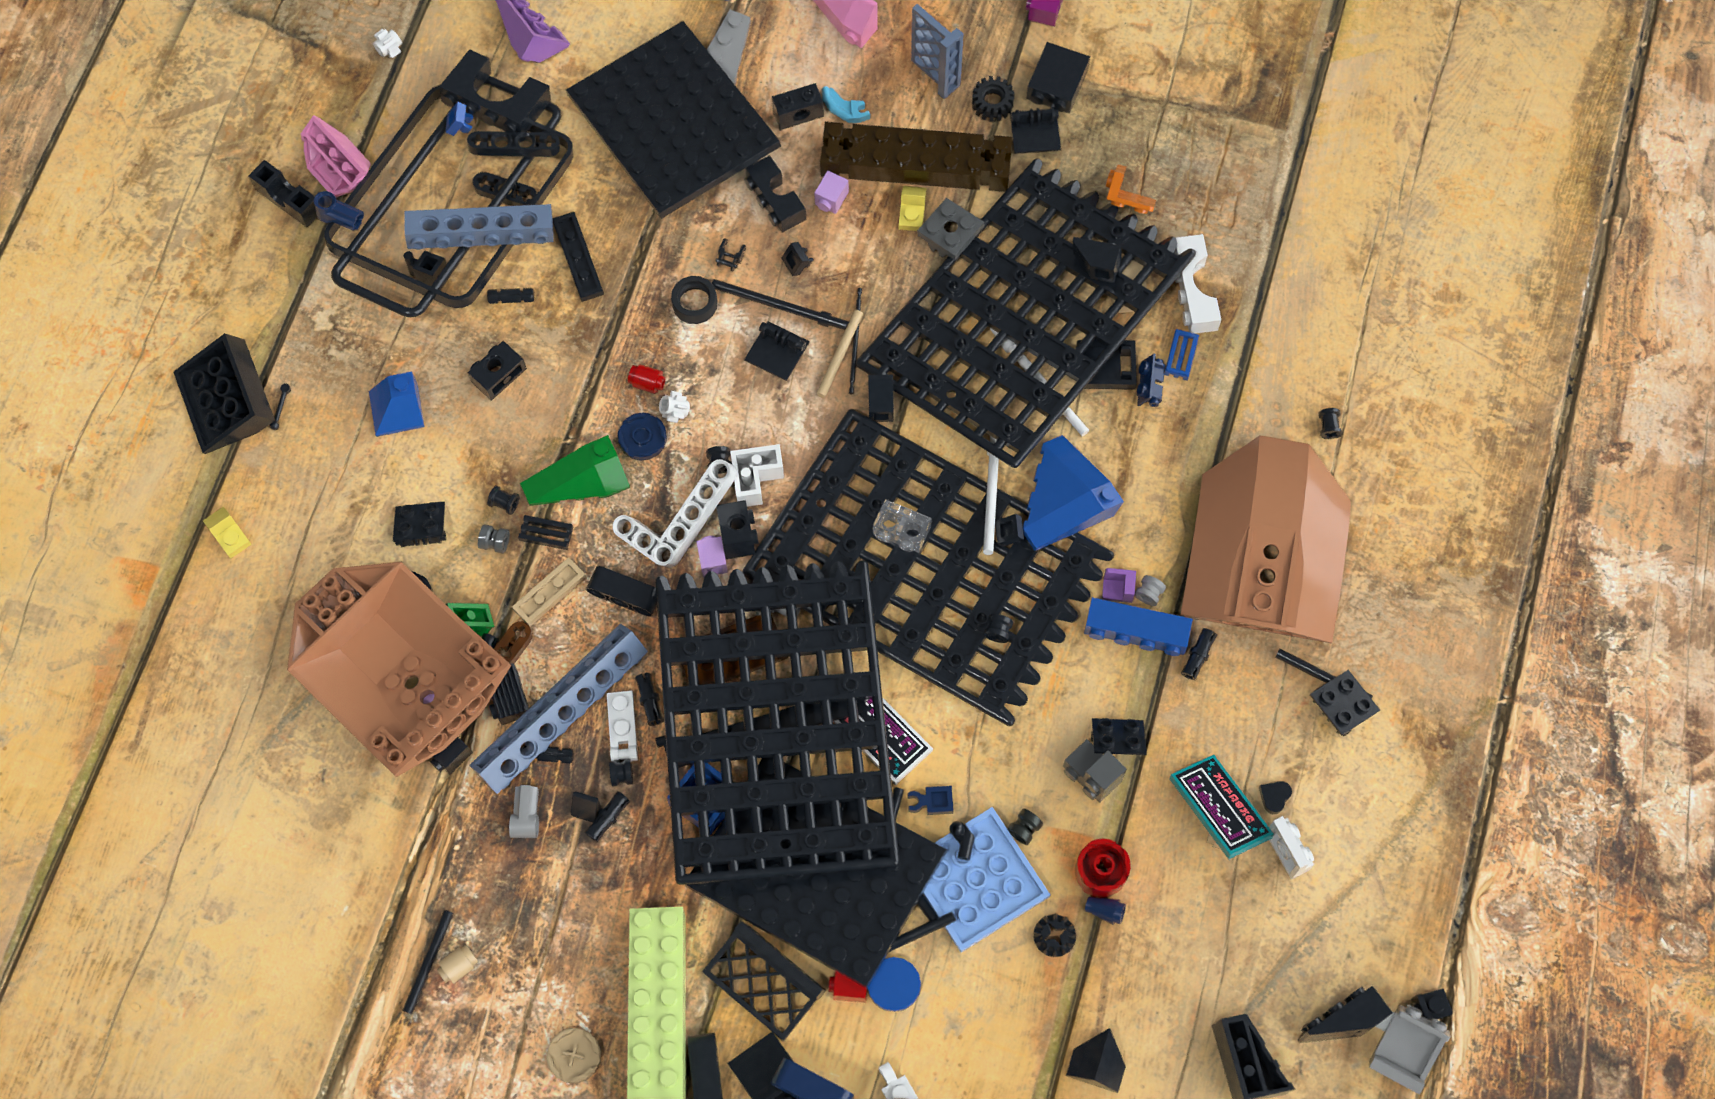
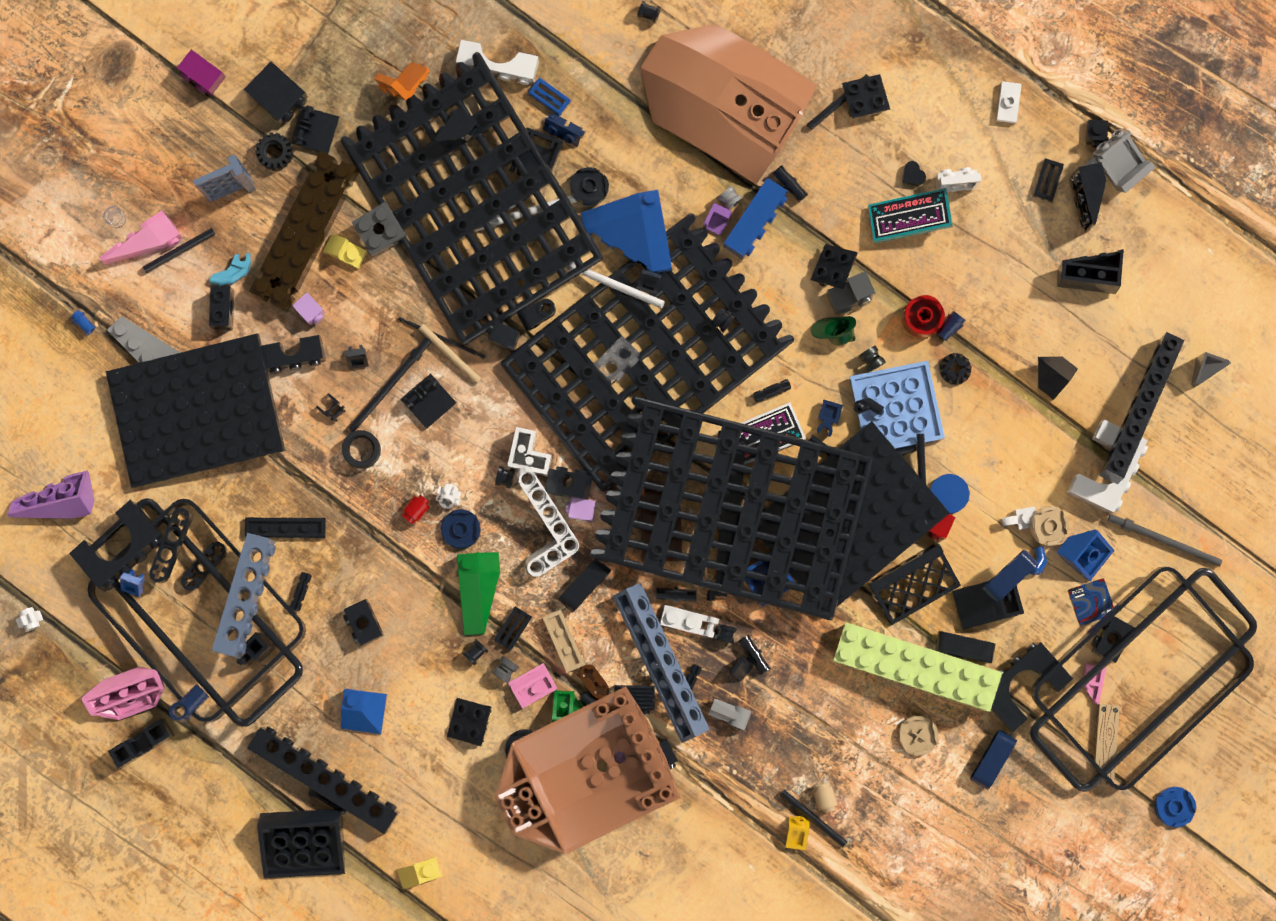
camera: 70 degrees left, 15 degrees up
(320, 313) = (259, 746): none -> black brick
(403, 946) = (797, 833): none -> yellow bracket
(484, 577) = (533, 686): none -> bright pink plate
(845, 48) = (179, 250): none -> black bar
(920, 425) = (533, 316): none -> black piece
(938, 723) = (771, 391): none -> black axle
(1042, 769) = (835, 329): none -> dark green piece
(1096, 431) = (589, 186): none -> black tile
(1335, 967) = (1043, 196): none -> black tile
(1418, 881) = (1008, 102): none -> white plate

